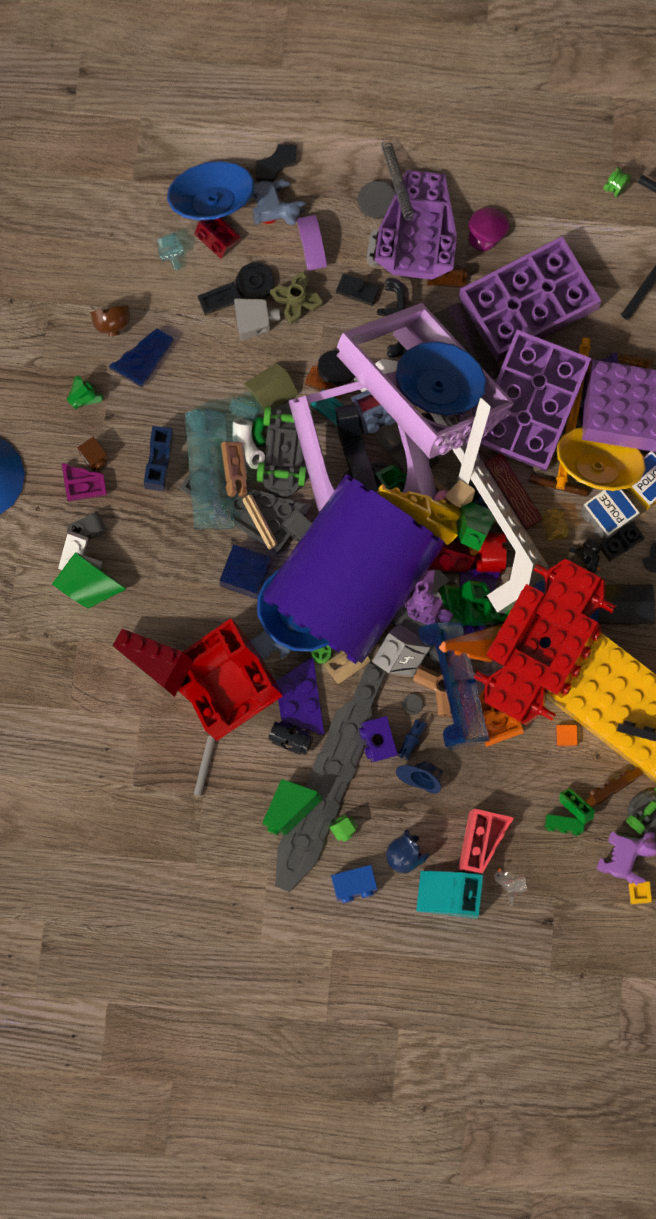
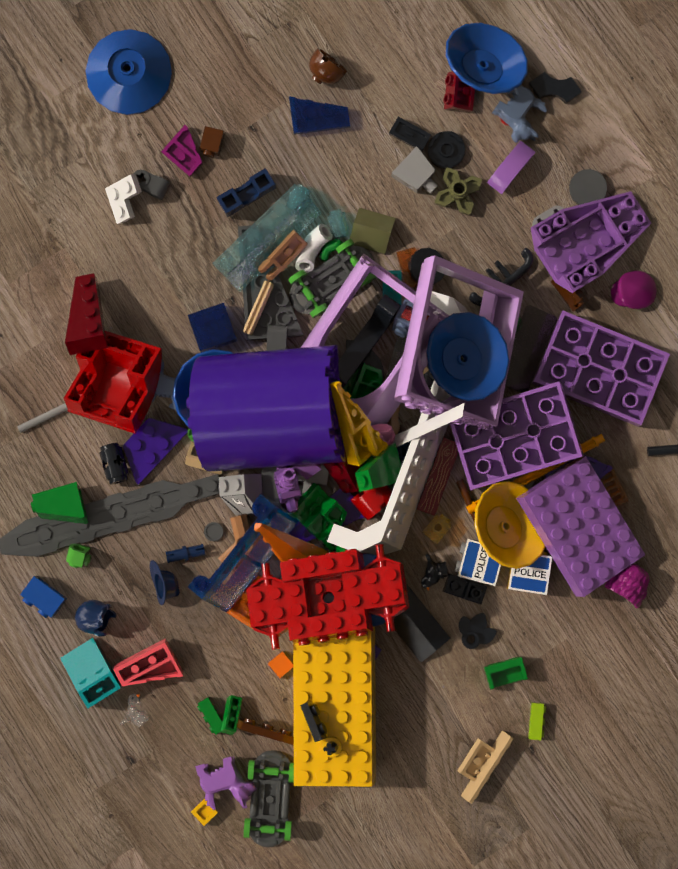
camera: 55 degrees right, 10 degrees up
(83, 393) = (252, 95): green rock -> none
(86, 582) = (108, 218): green slope -> none
(170, 249) = (419, 66): clear light blue piece -> none
(357, 289) = (503, 231): black tile -> none
(386, 748) = (159, 539): dark purple brick -> none
(392, 156) = (606, 197): dark grey piece -> none
(460, 494) = (394, 442): tan slope -> none

